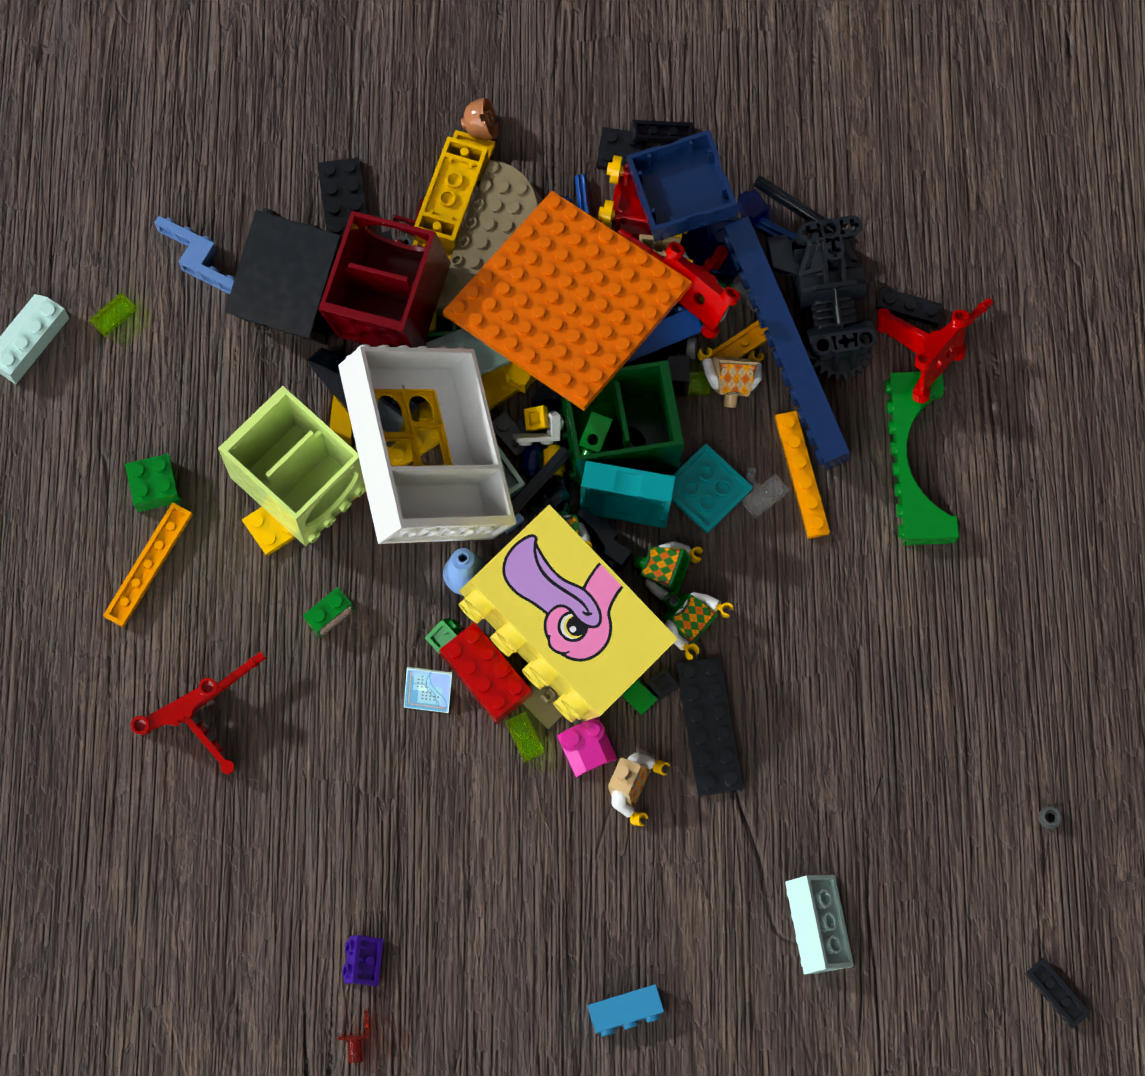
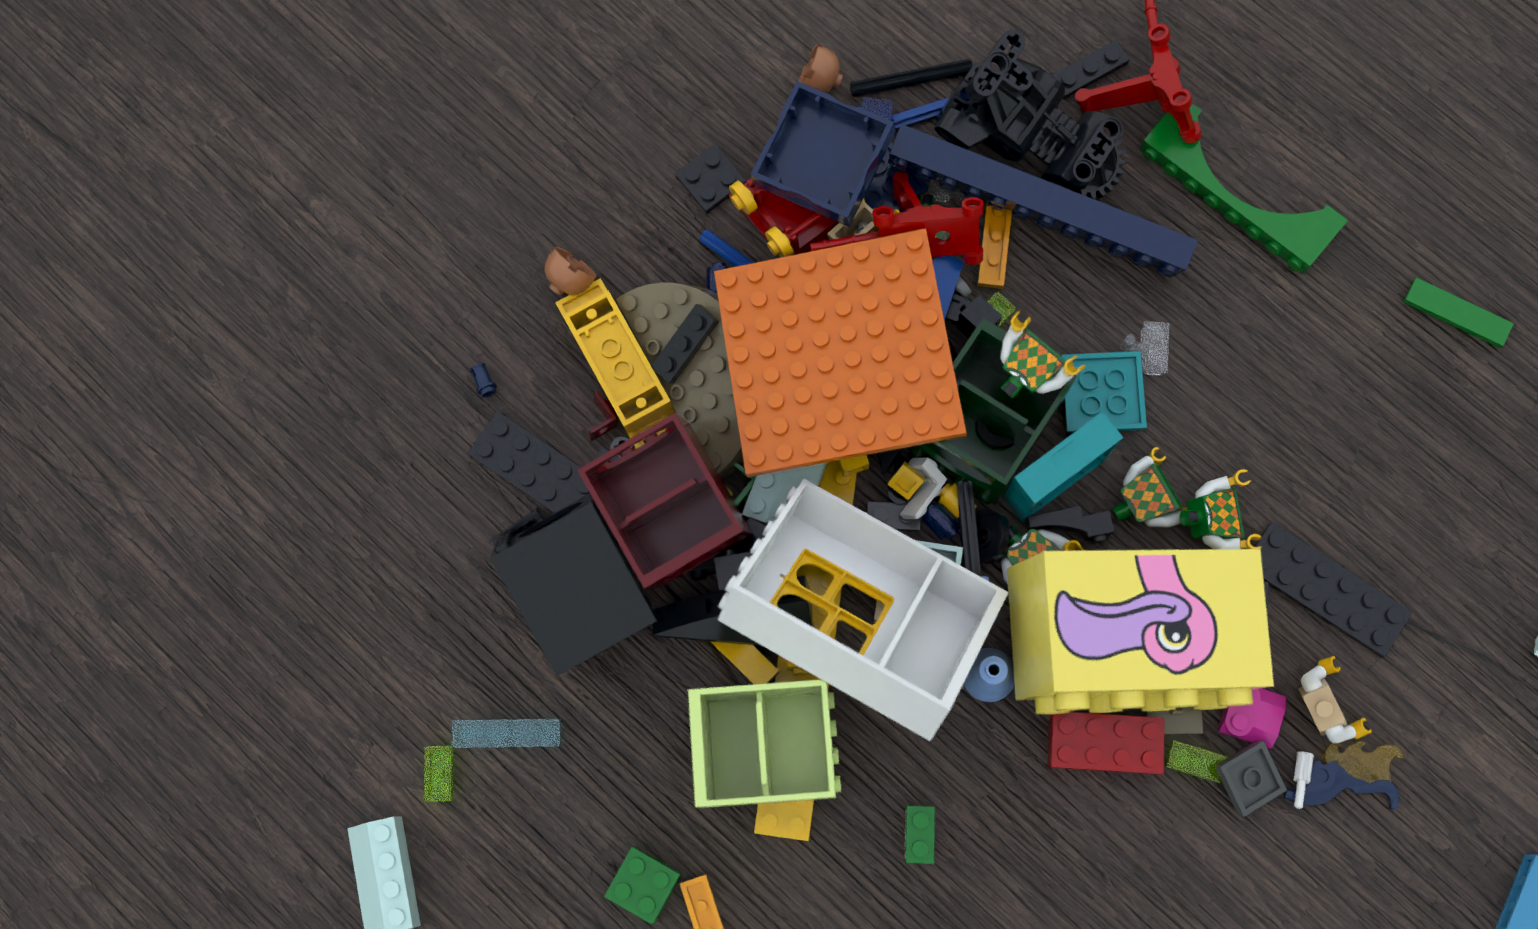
camera: 35 degrees left, 5 degrees up
(171, 331) = (506, 733): none -> clear light blue plate
(197, 255) = (455, 643): medium blue bracket -> none
(367, 137) = (483, 380): none -> dark blue pin
(427, 689) = (1076, 810): piece -> none
(443, 633) = (1034, 746): green bracket -> none
(495, 216) = (685, 343): none -> black plate
(544, 776) = (1250, 778): none -> dark grey plate
(575, 807) = (1302, 776): none -> white axle
(597, 429) = (981, 435): green torso -> none
(607, 835) = (1350, 770): none -> piece
(659, 131) = (730, 127): black tile -> none
(664, 406) = (1032, 362): none -> torso
(732, 375) = (1020, 275): torso -> none
(746, 152) = (822, 70): none -> nougat cylinder
(802, 475) = (1163, 299): light orange plate -> none
(968, 658) = (1458, 312): none -> green tile

